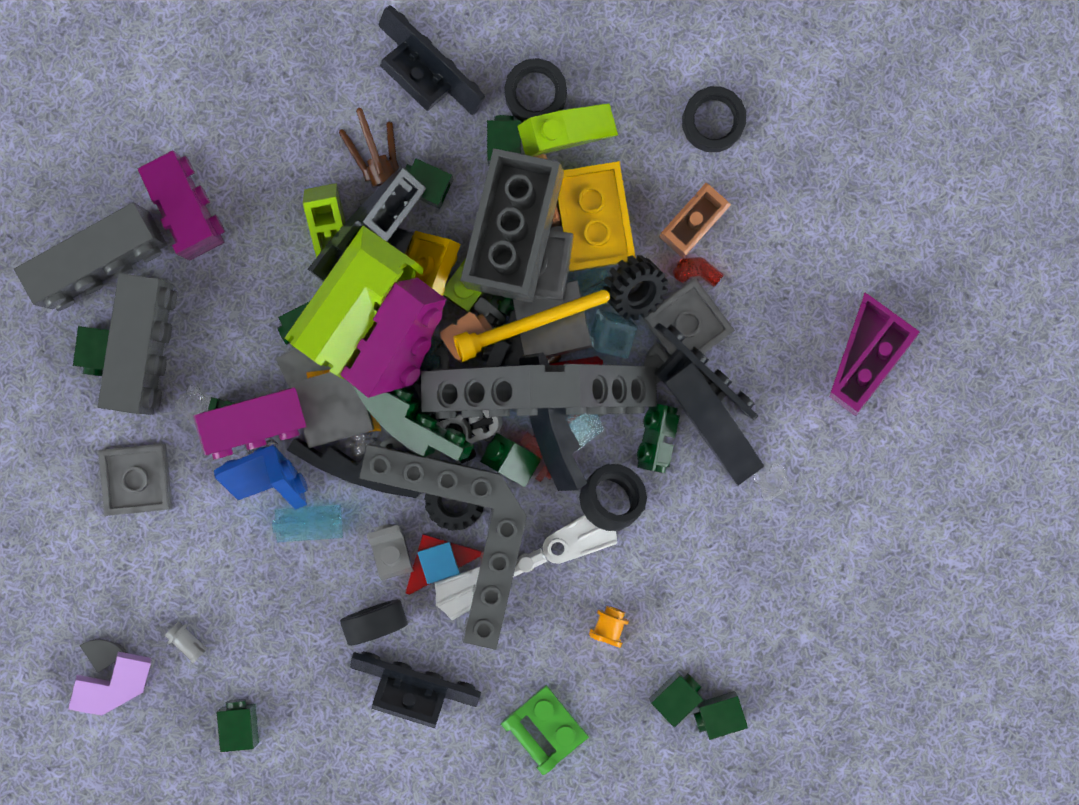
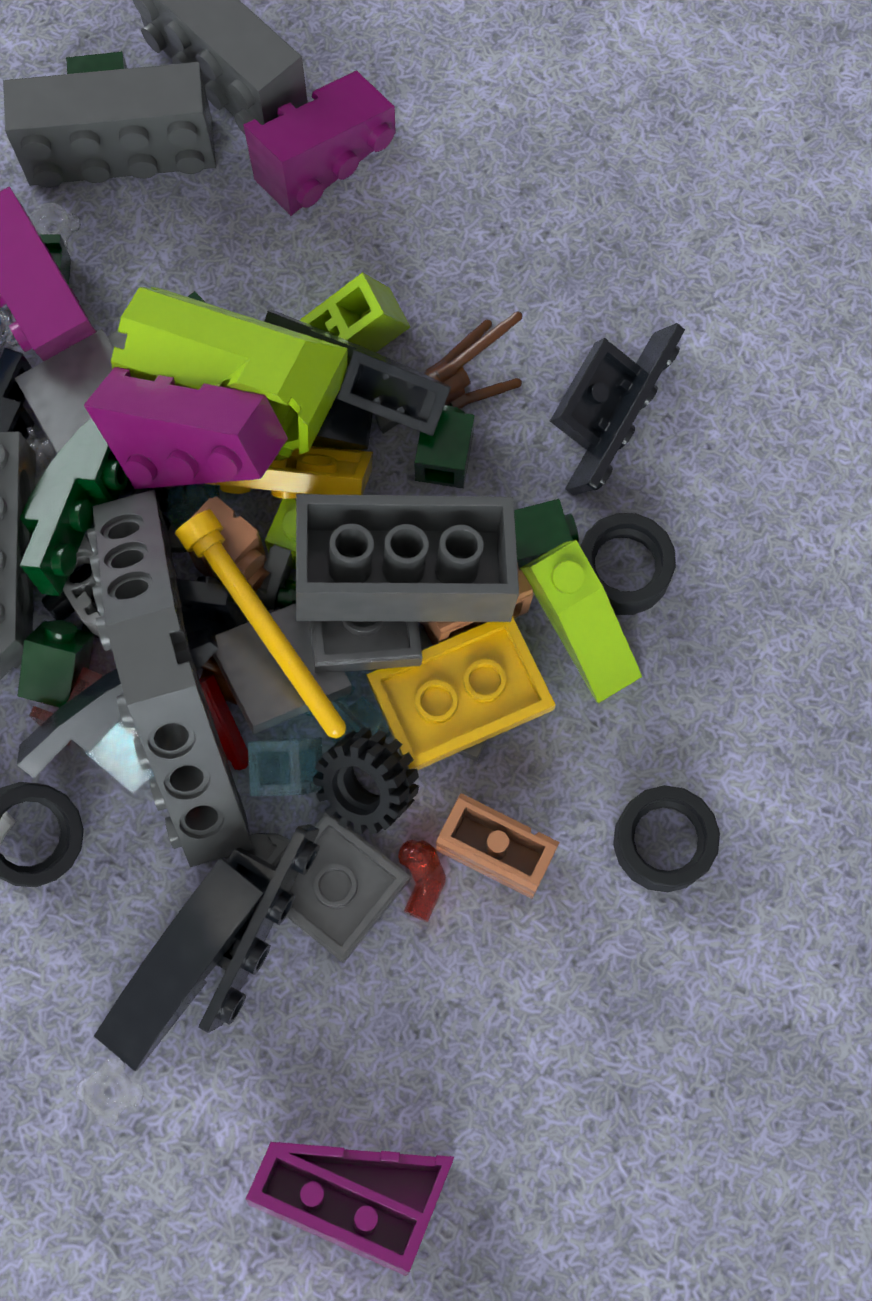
camera: 70 degrees right, 15 degrees down
(652, 452) = (120, 883): dark green hinge -> none

